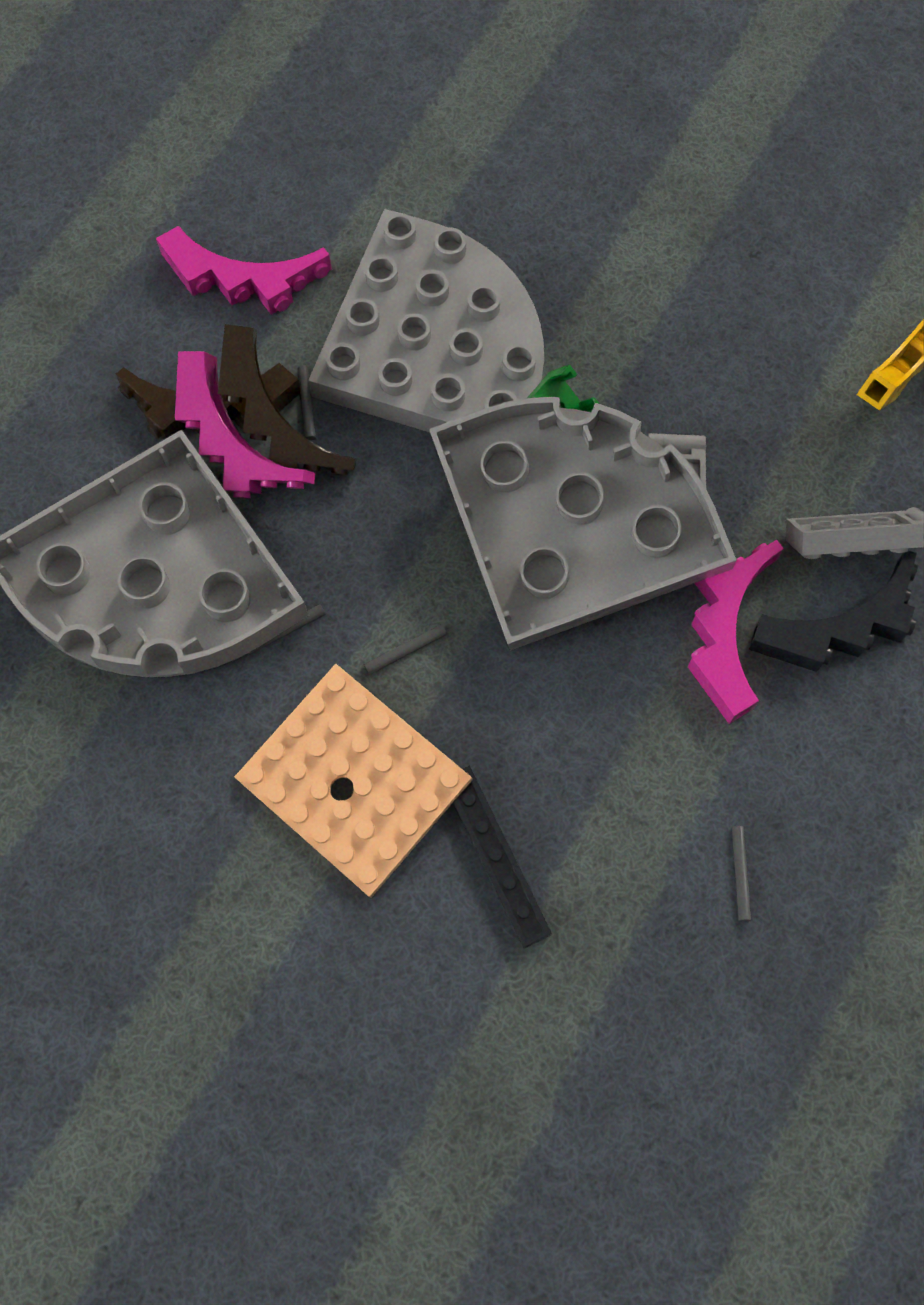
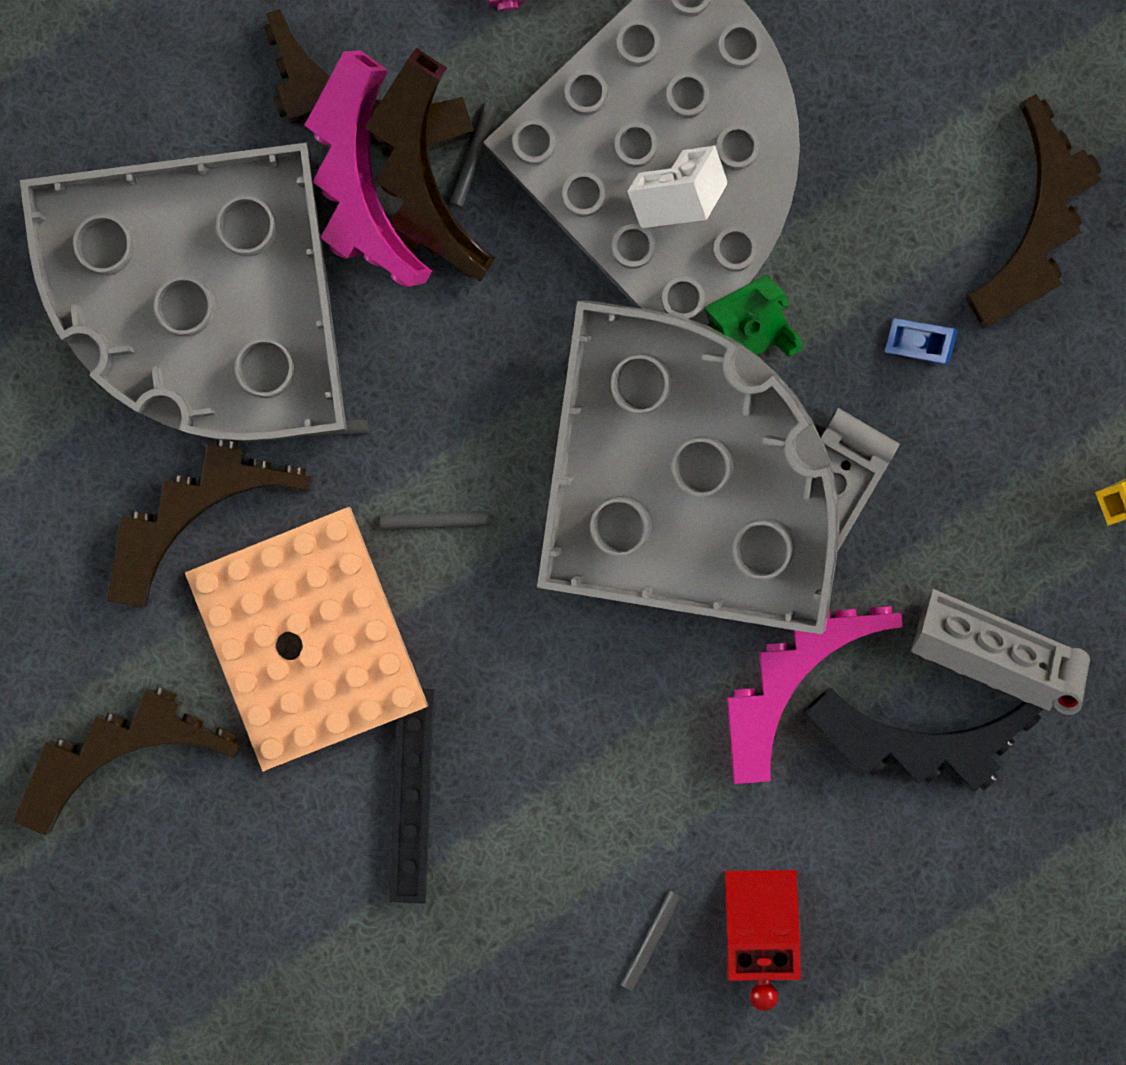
camera: 30 degrees right, 20 degrees up
(193, 765) = (145, 542): none -> dark brown arch
(206, 977) = (64, 769): none -> dark brown arch
(458, 339) = (679, 193): none -> white panel
(680, 367) = (921, 341): none -> slope
(714, 265) = (1059, 178): none -> dark brown arch
(820, 815) = (762, 922): none -> red slope

